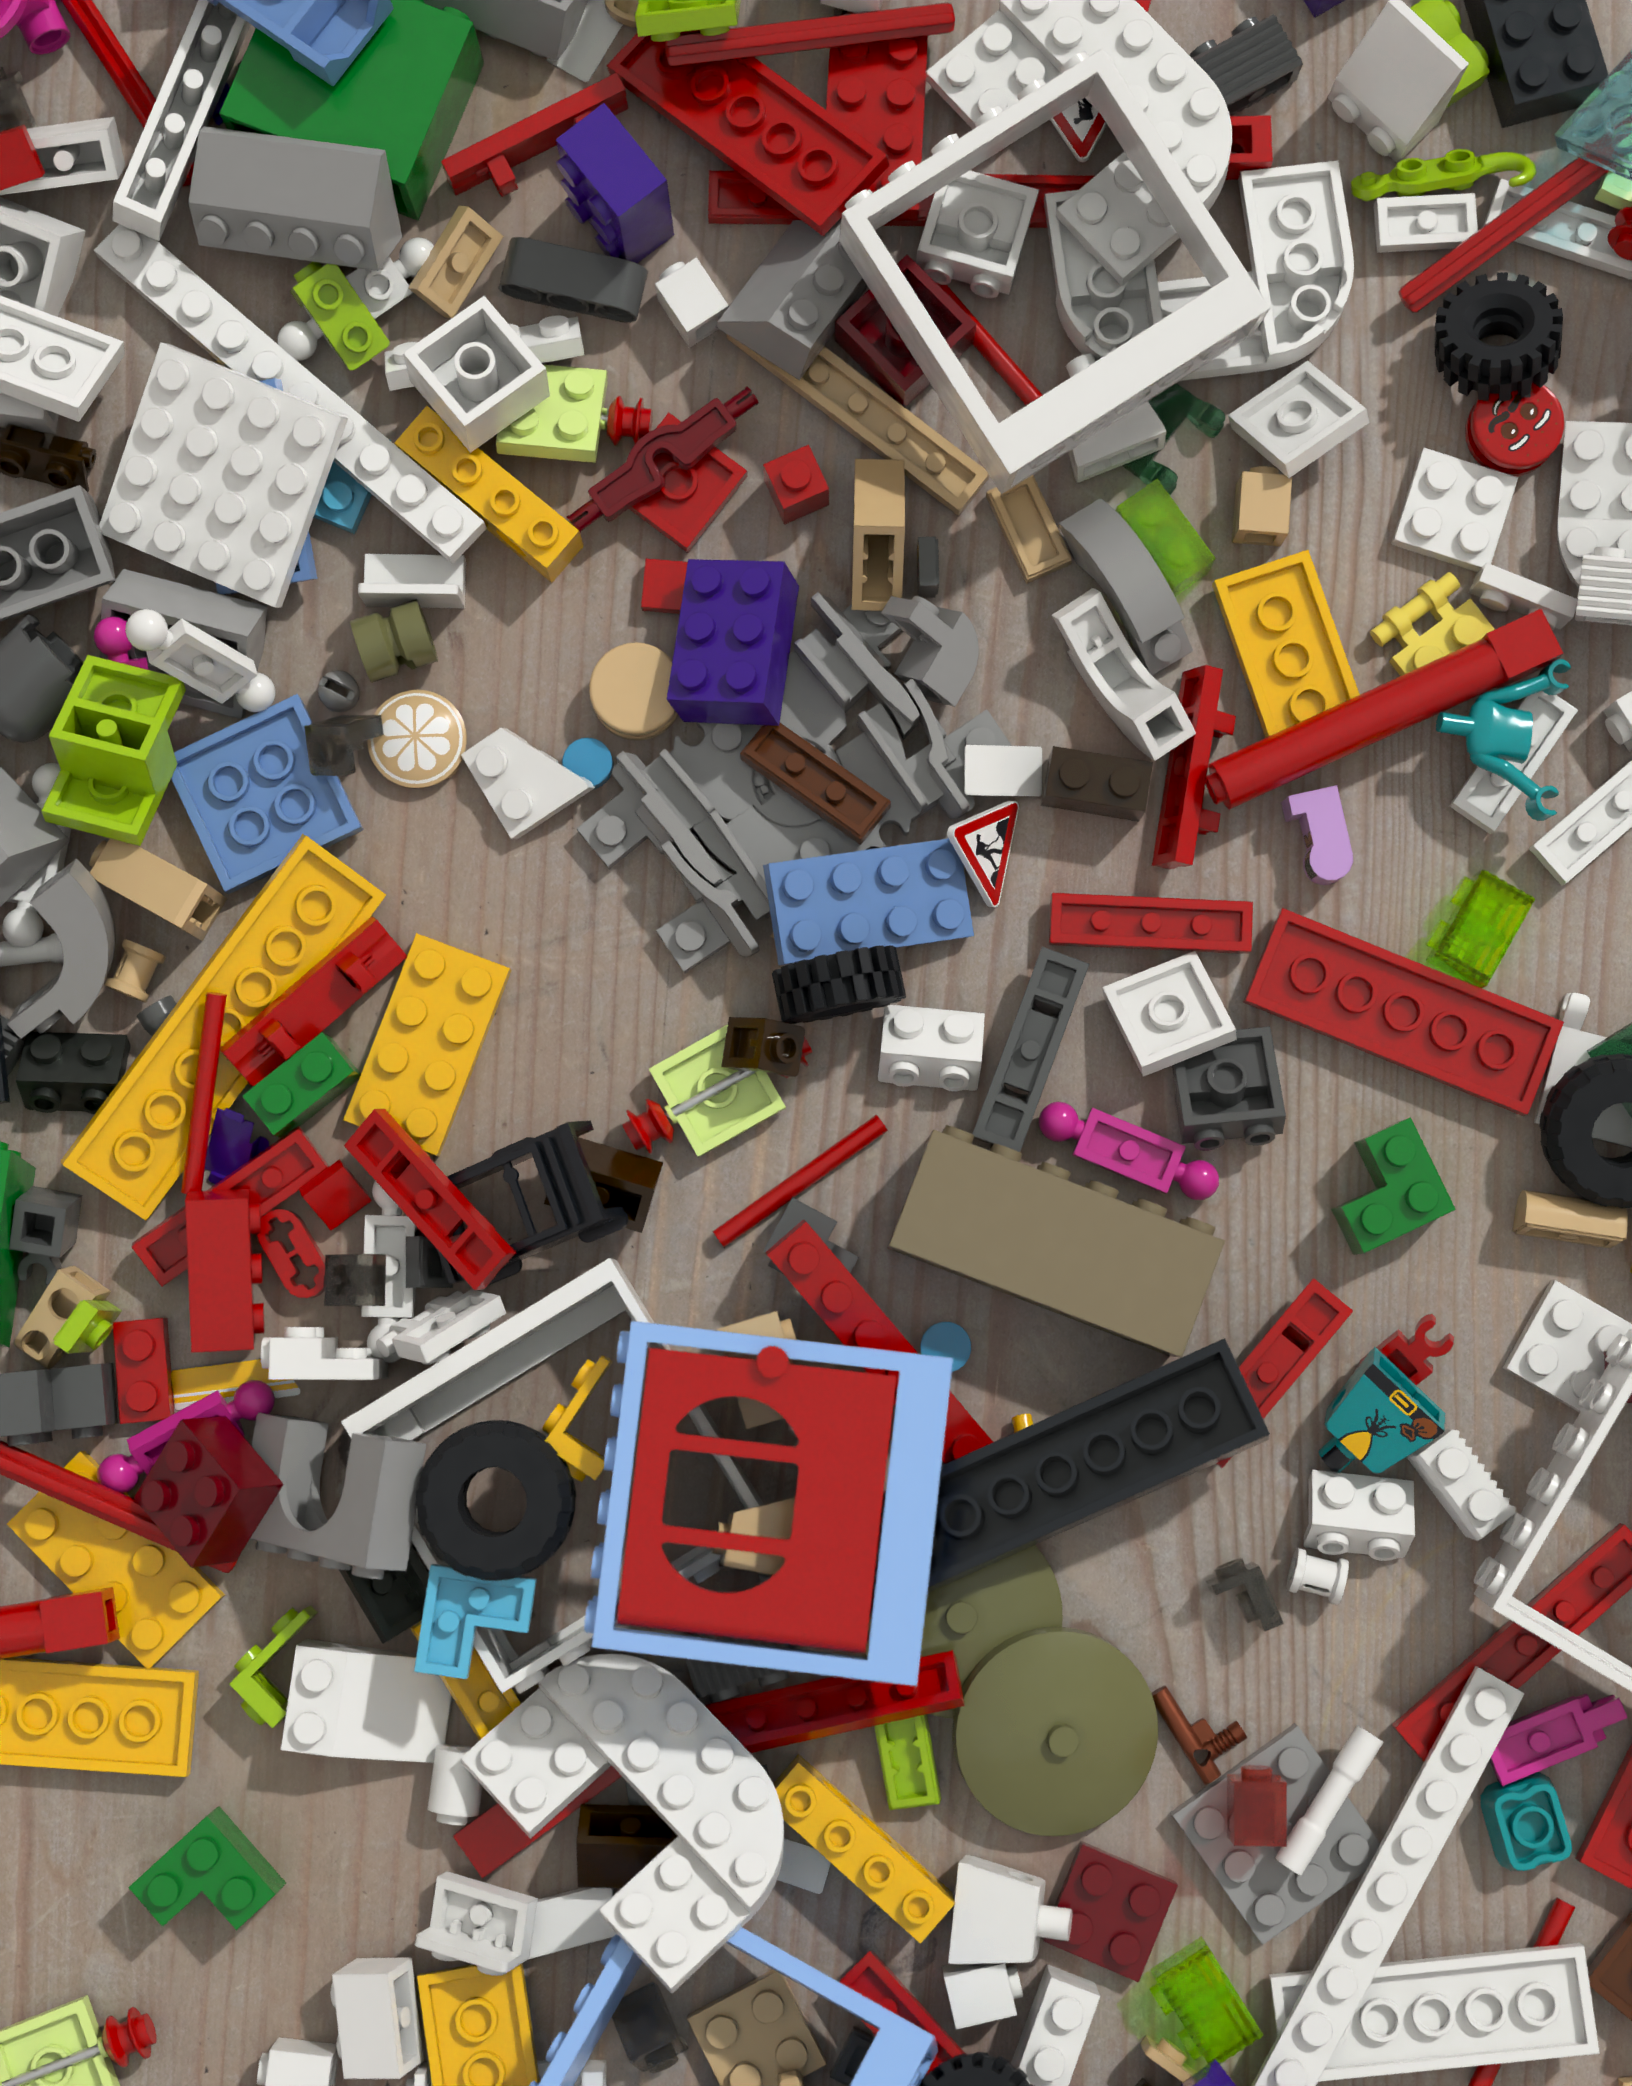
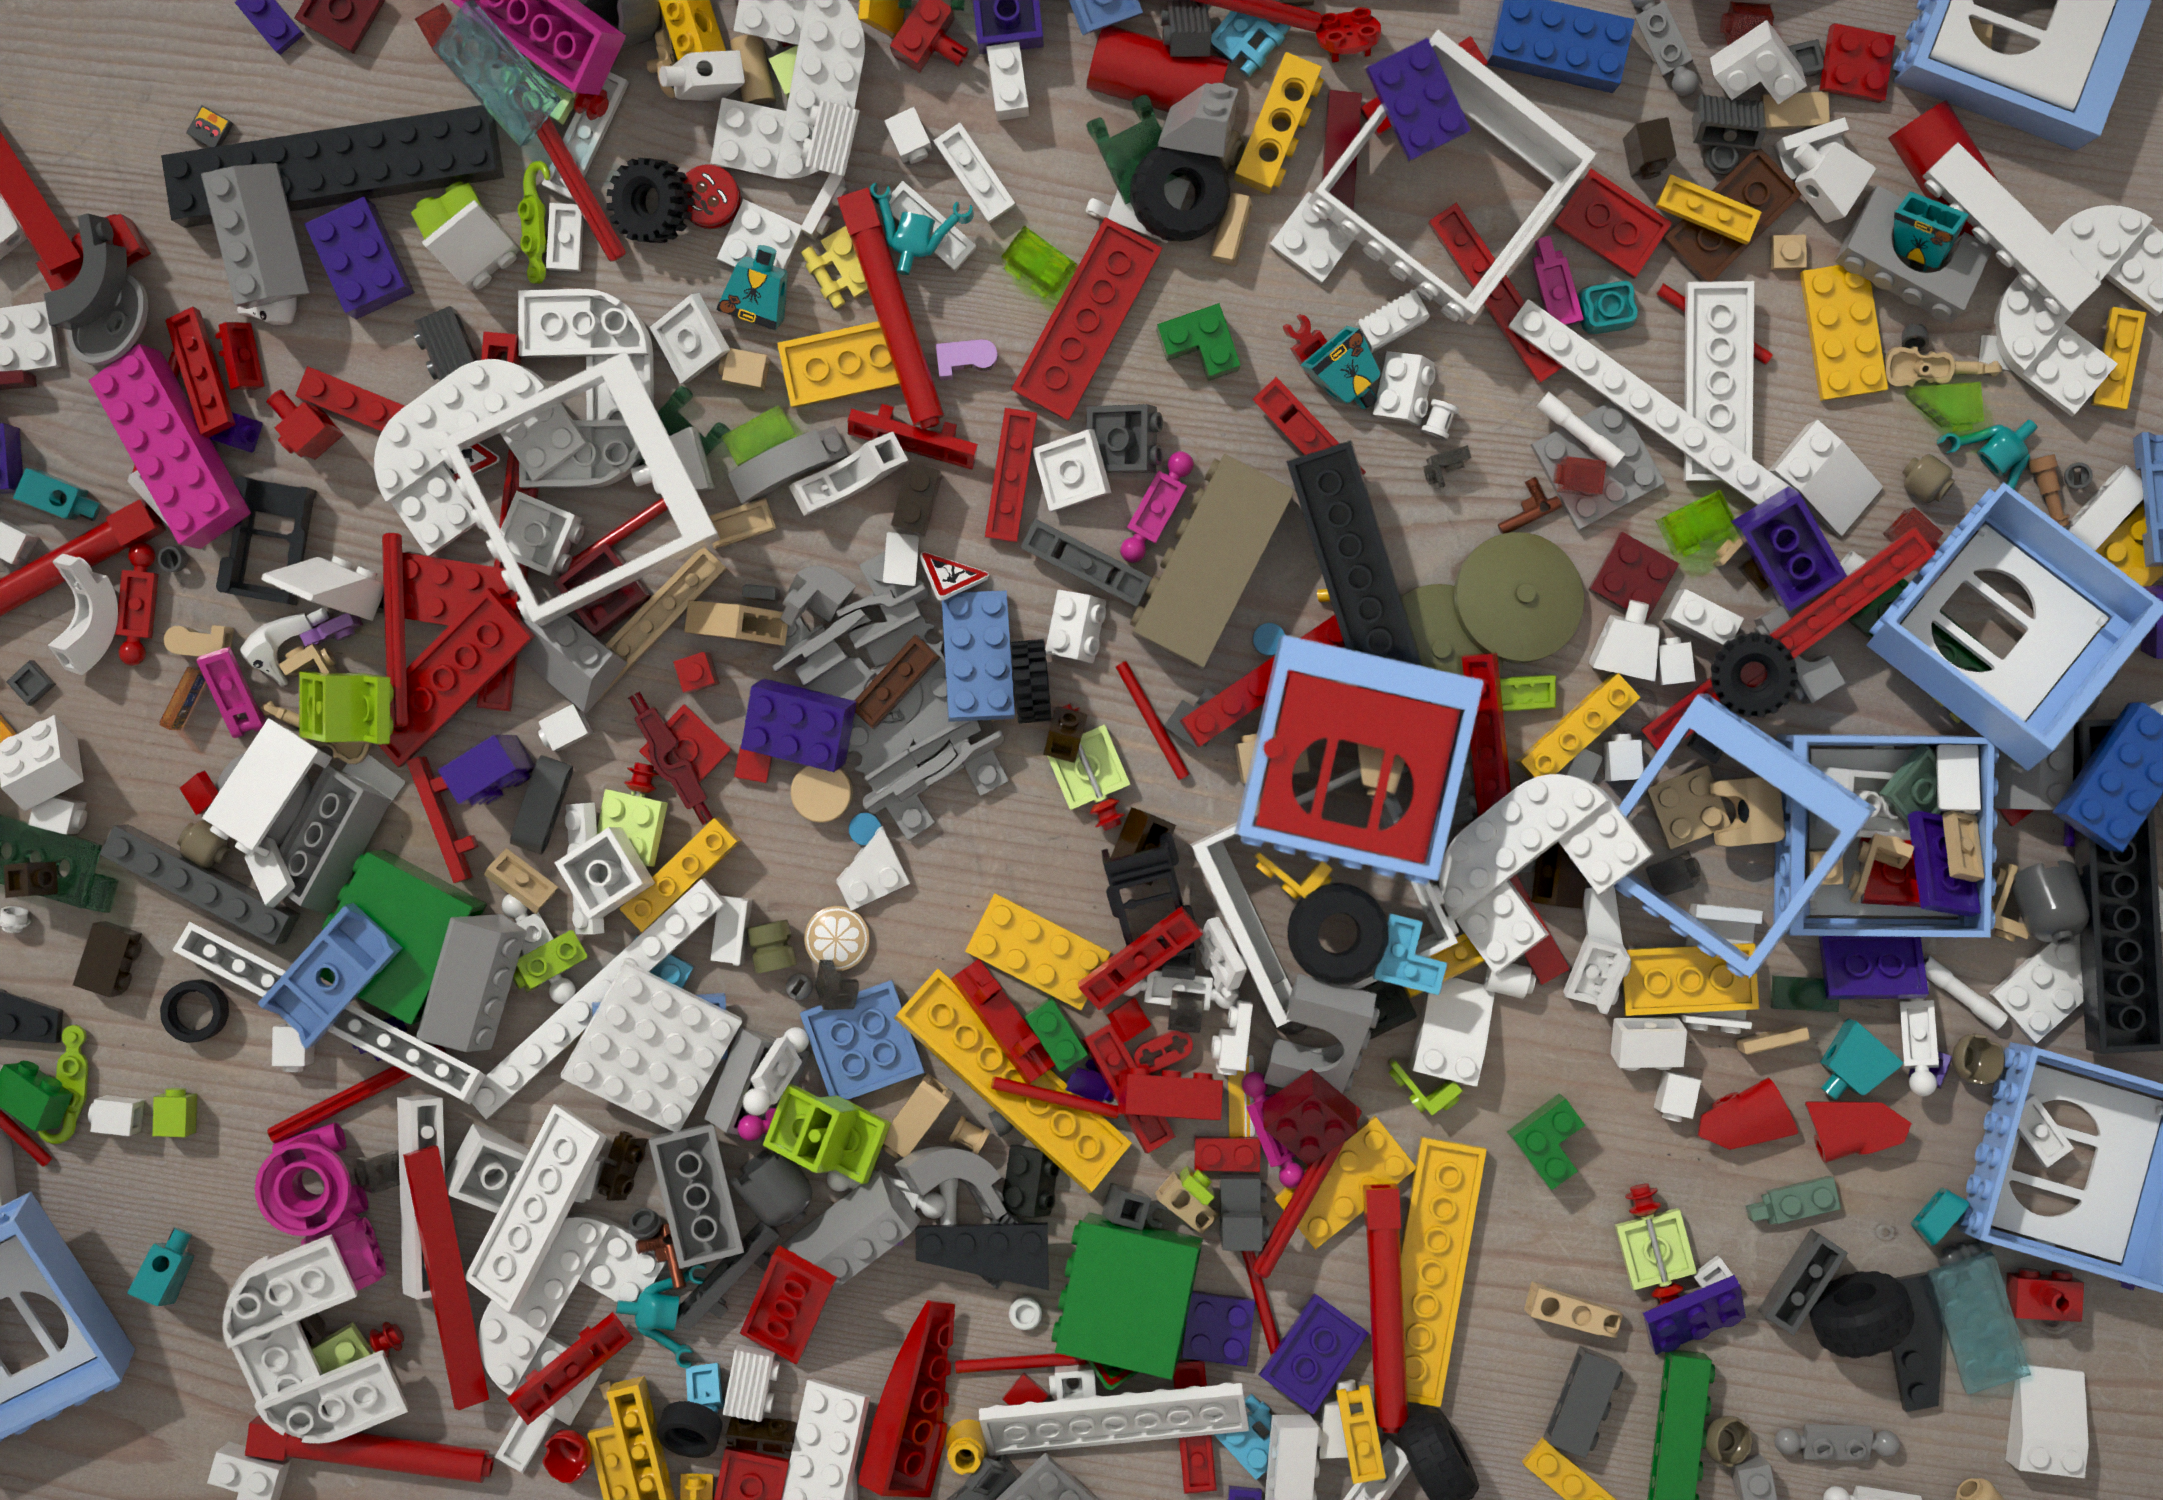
camera: 85 degrees left, 5 degrees up
(821, 1926) = (1622, 758): none -> white brick
(1384, 509) = (757, 290): none -> teal torso

